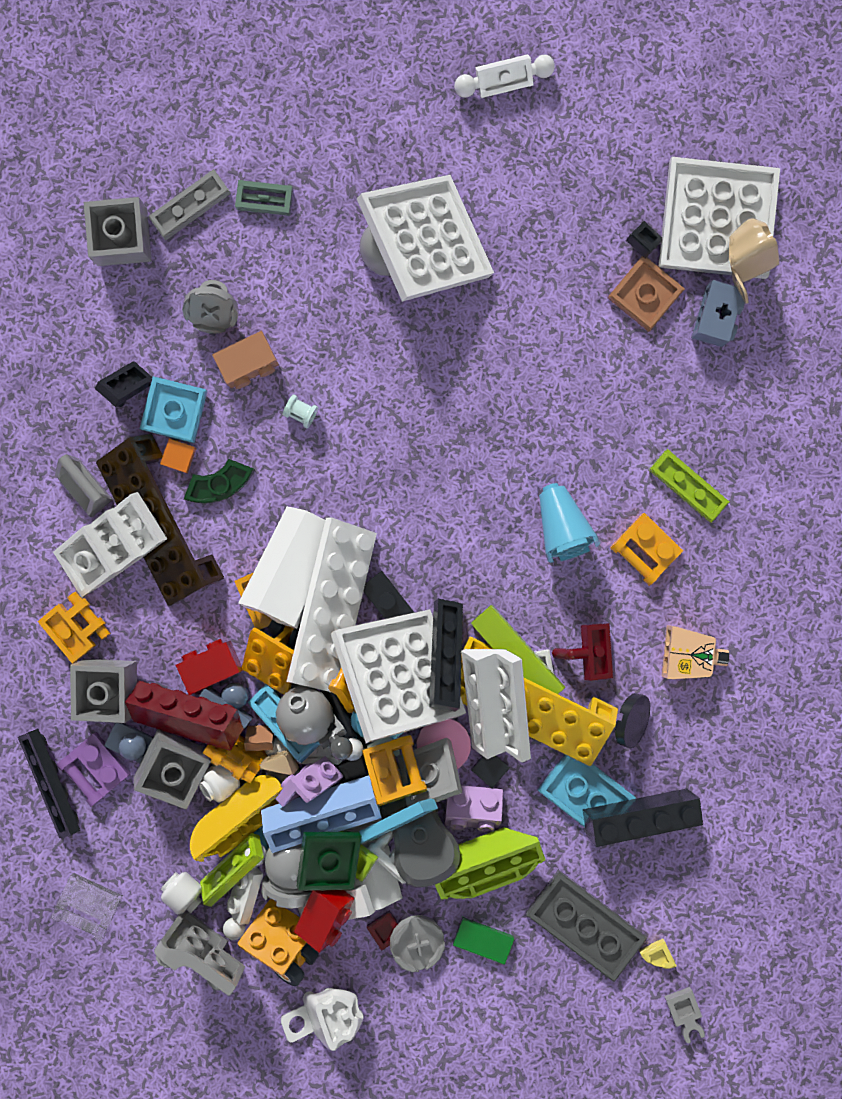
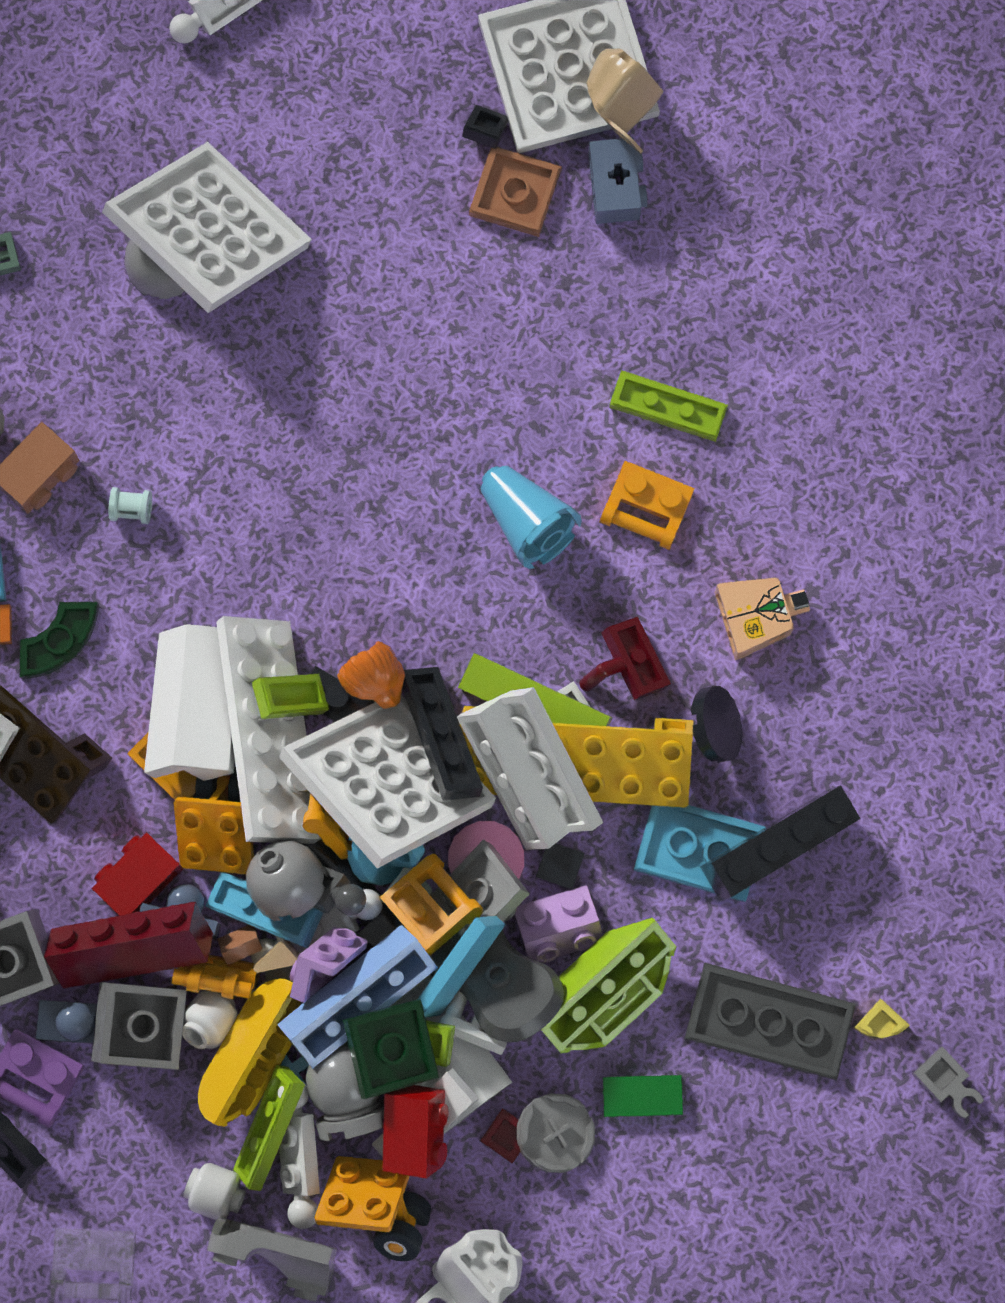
camera: 20 degrees left, 10 degrees down
(355, 589) = (290, 696): none -> lime tile
(417, 598) = (374, 676): none -> orange hair

